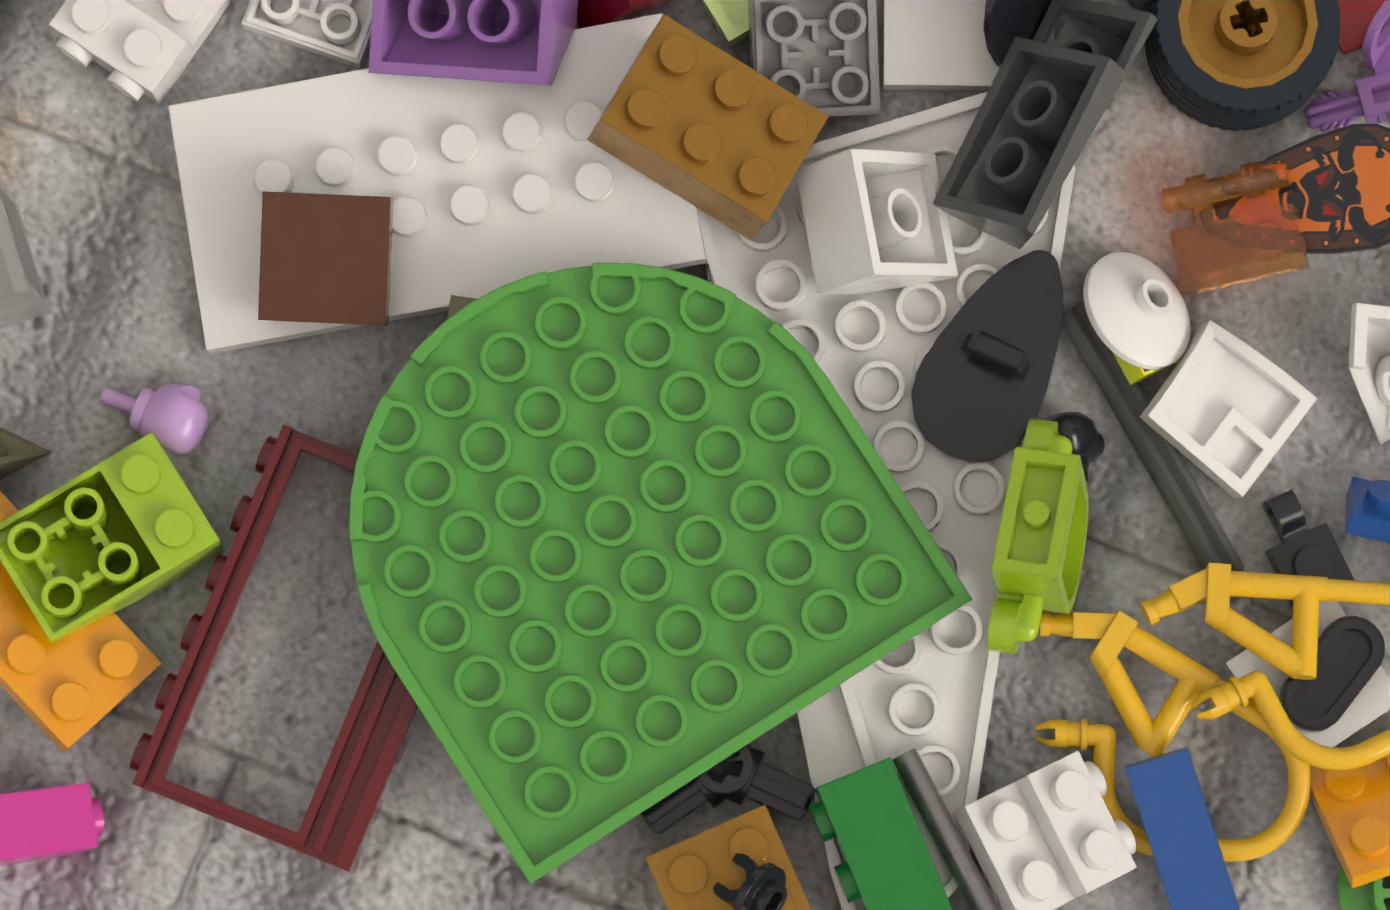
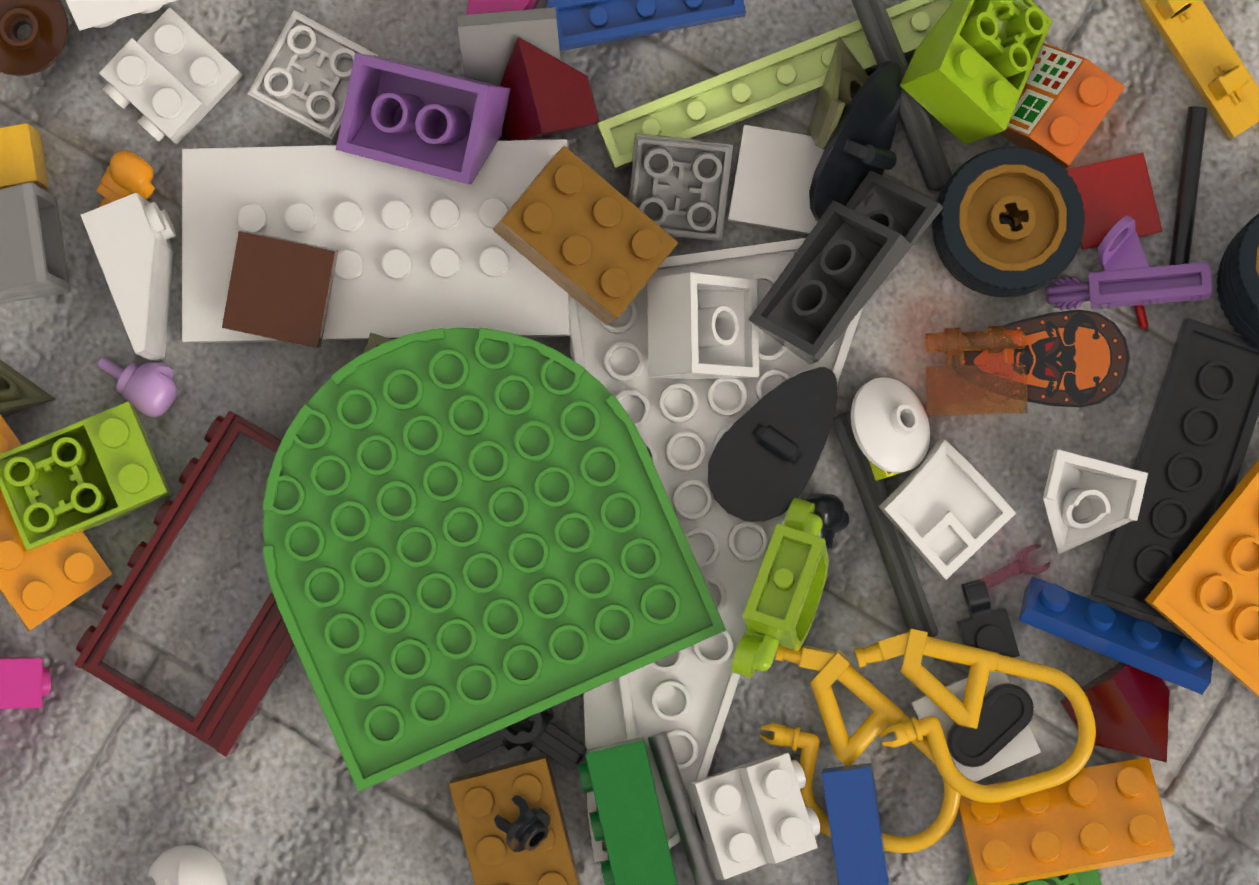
camera: 10 degrees right, 5 degrees up
(100, 158) = (125, 176): none -> light orange piece
(129, 239) = (137, 262): none -> white slope
(1334, 466) = (1016, 567): none -> clear pink hand

